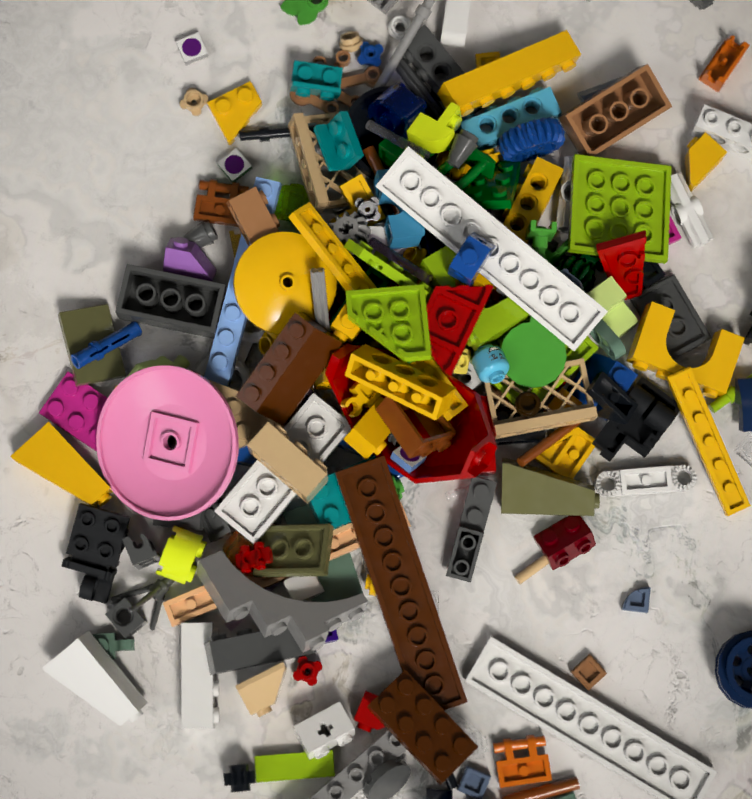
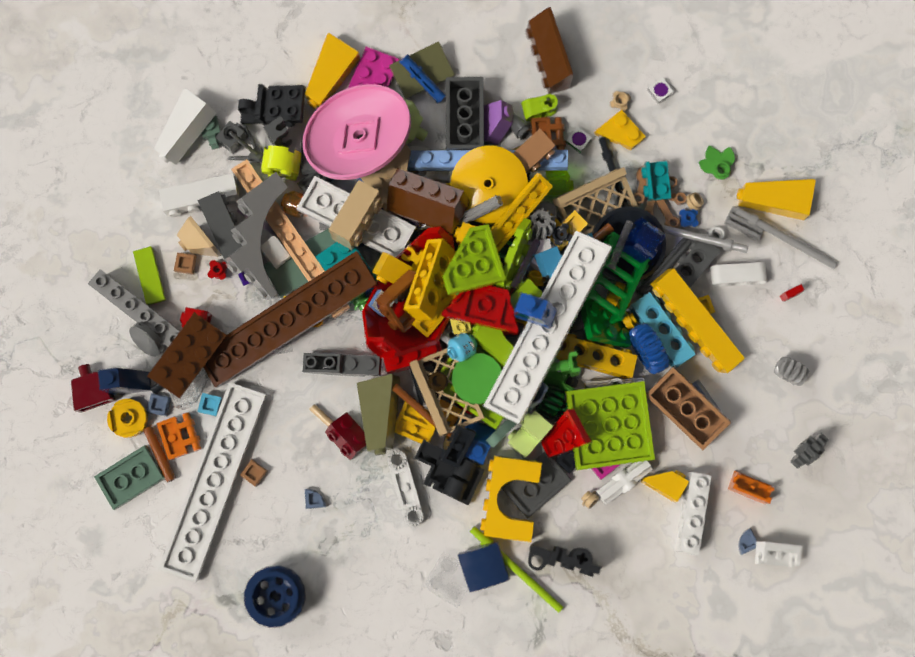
camera: 80 degrees right, 0 degrees up
(108, 173) = (549, 51): none -> reddish brown slope
(180, 208) = (539, 107): none -> lime piece
(239, 778) = (133, 238): black gear -> none
(256, 558) = (286, 211): red piece -> none
(287, 713) = (185, 263): none -> medium nougat tile
(297, 550) = (297, 238): olive tile -> none
(333, 720) = (173, 279): white brick -> none
(339, 142) = (608, 203): teal bracket -> none
(433, 134) = (630, 270): neon yellow brick -> none
(461, 148) = (623, 291): dark grey cone -> none
(488, 713) = (209, 404): none -> medium azure plate
(702, 257) = (589, 499): none -> tan plate
(708, 441) = (444, 528): yellow tile -> none

